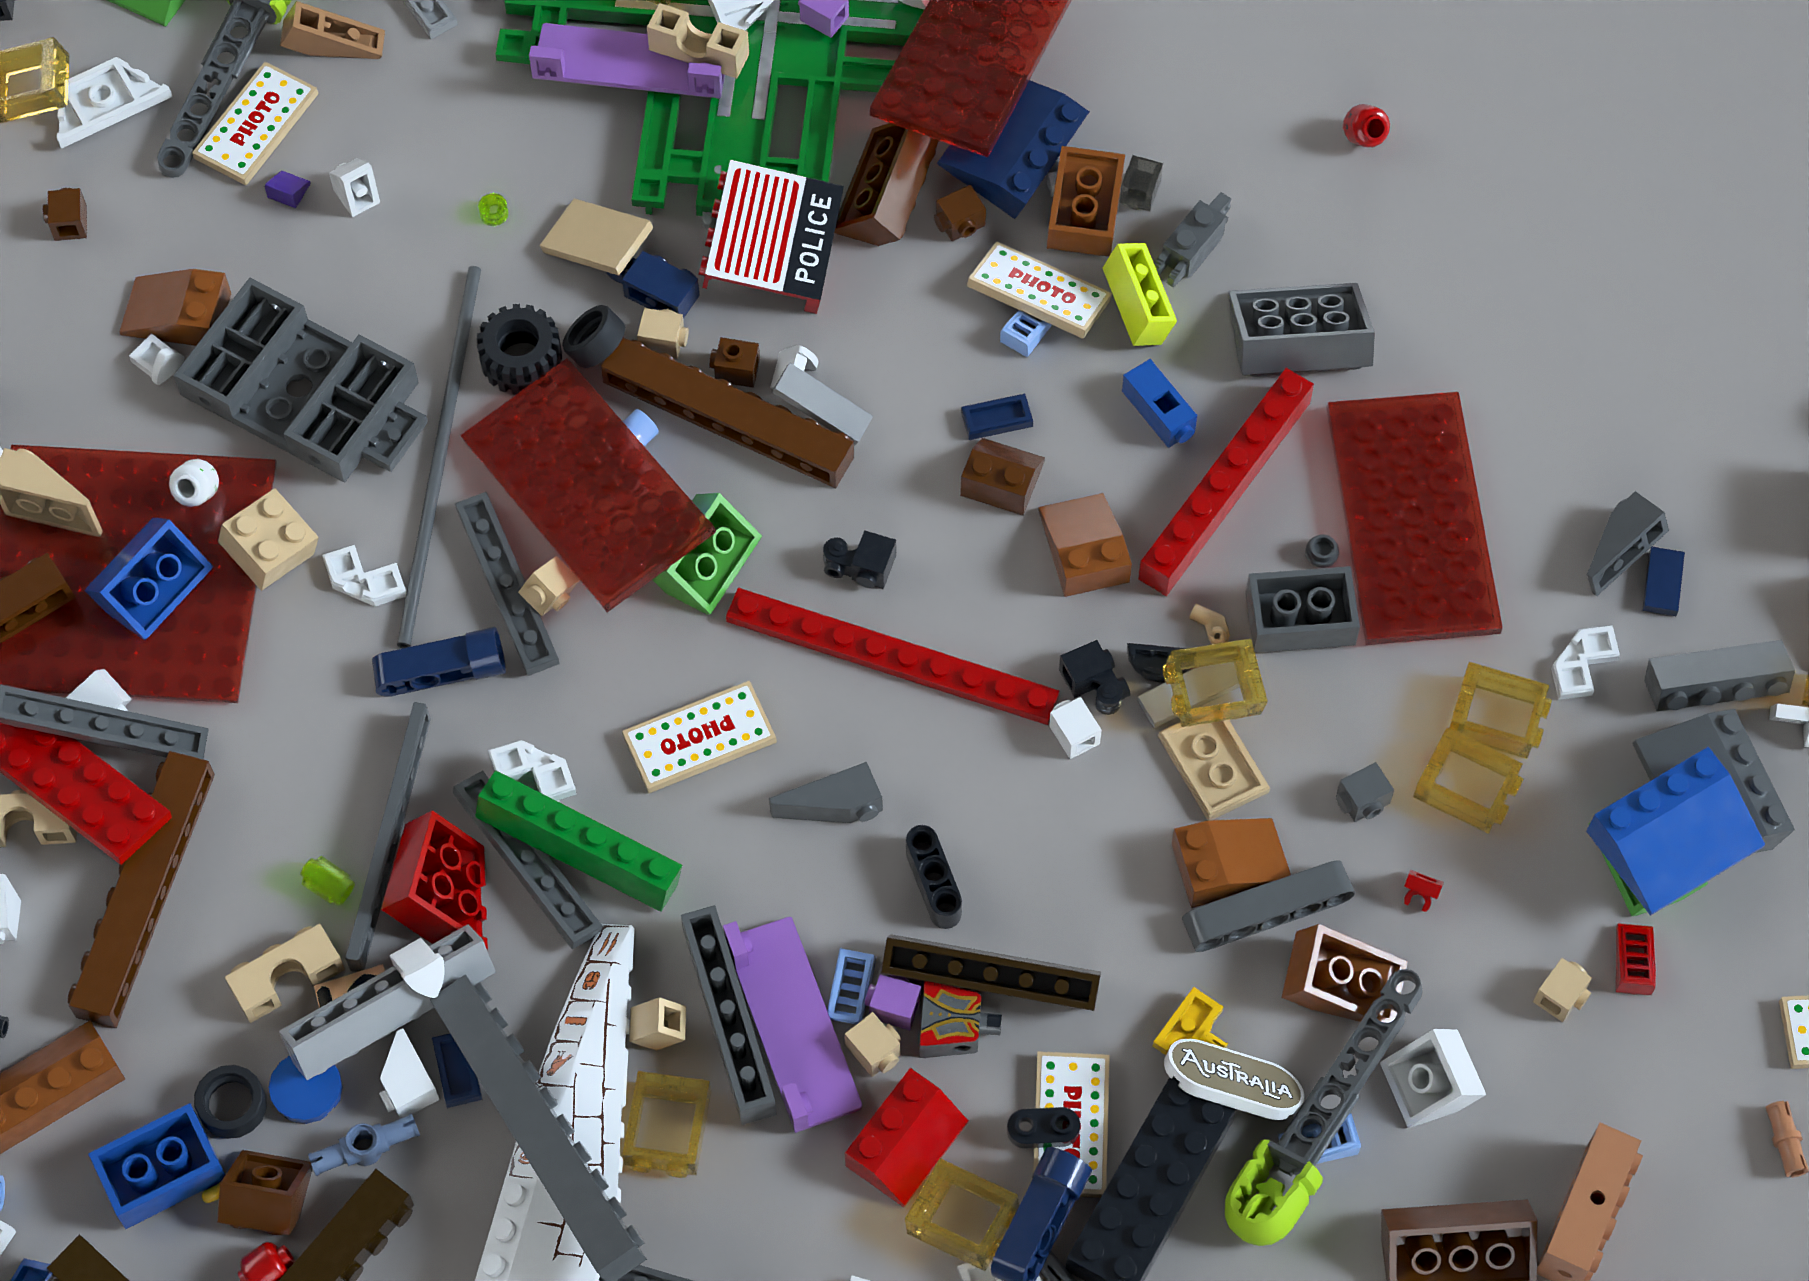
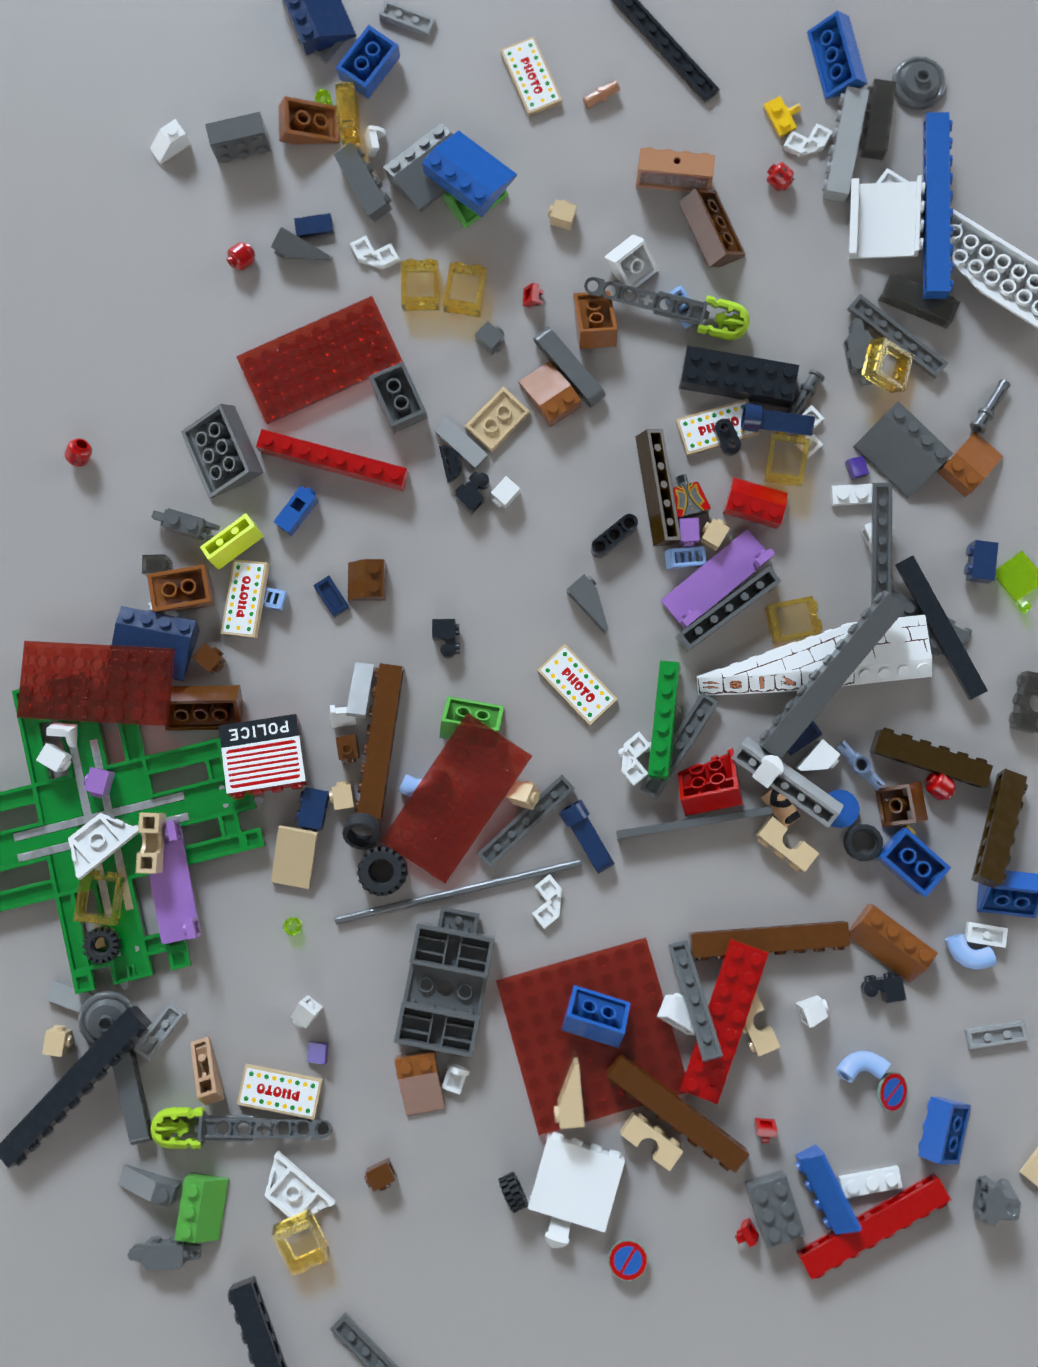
camera: 105 degrees left, 20 degrees up
(193, 482) = (532, 1016): white head -> none
(268, 539) = (550, 960): tan brick -> none
(327, 880) = (729, 844): clear neon green brick -> none
(657, 1024) = (746, 642): tan brick -> none
(892, 656) = (495, 602): red plate -> none
(1086, 544) = (393, 523): dark orange slope -> none
(1191, 1021) = (648, 385): yellow plate -> none
(1215, 623) = (418, 442): tan arm -> none
(1234, 1079) = (671, 352): tile -> none
(1248, 675) = (449, 411): clear yellow window -> none
(1322, 551) = (356, 400): dark grey plate -> none
(1635, 984) = (536, 178): red slope -> none
(1637, 450) = (240, 256): none -> red head

